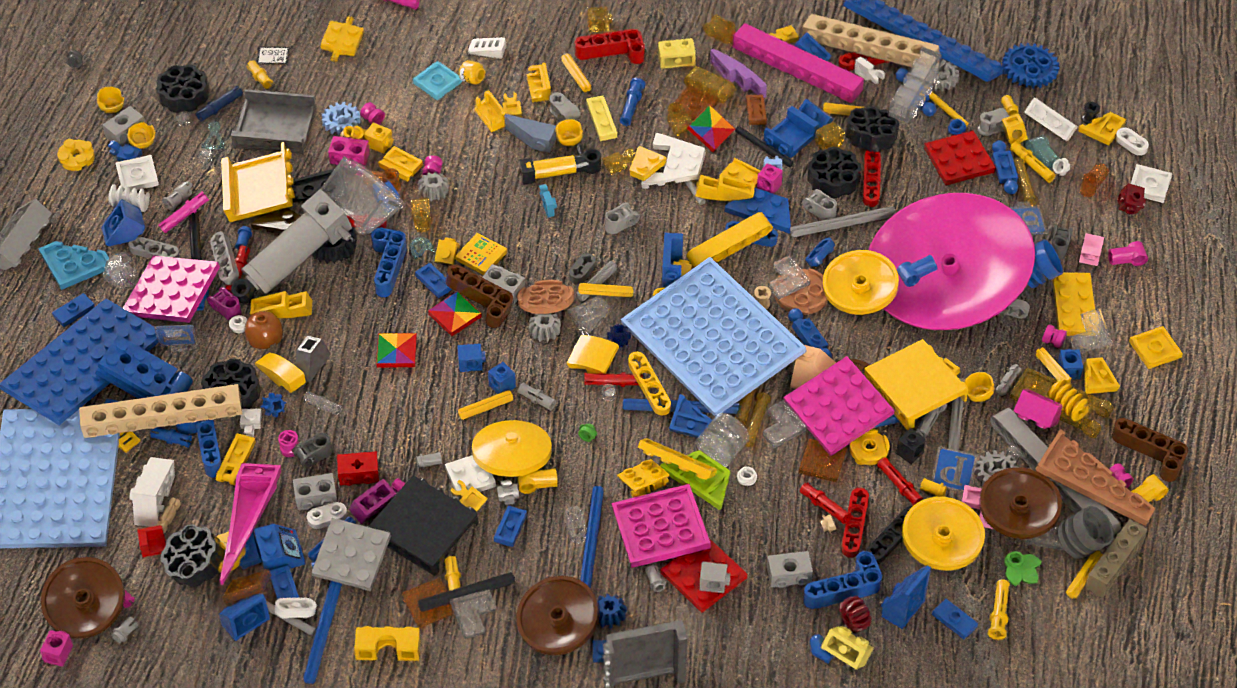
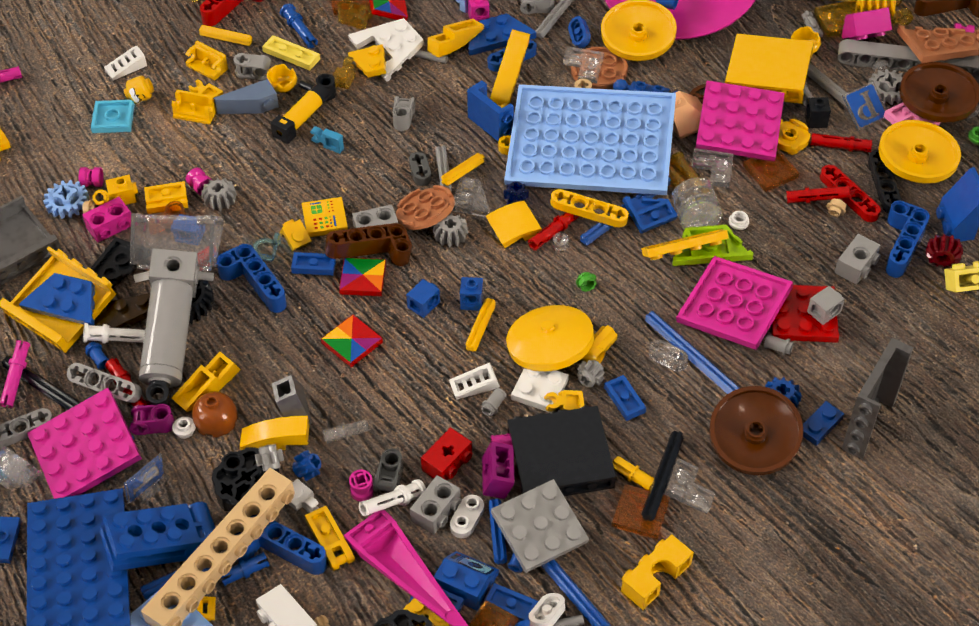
camera: 45 degrees left, 0 degrees up
(249, 379) = (269, 457): none -> light grey gear
(257, 226) = (106, 334): none -> white pin
(259, 185) = (63, 299): none -> blue wing
(267, 456) = (401, 495): none -> white pin
(421, 214) = (236, 222): clear yellow piece -> none
(445, 445) = (477, 388): none -> white slope
(547, 401) = (527, 284): light grey pin -> none
(644, 477) = (671, 279): yellow hinge -> none
(742, 171) = (448, 17): yellow plate -> none
(815, 643) = (947, 297): blue arm -> none
(933, 488) = (871, 127): yellow pin -> none

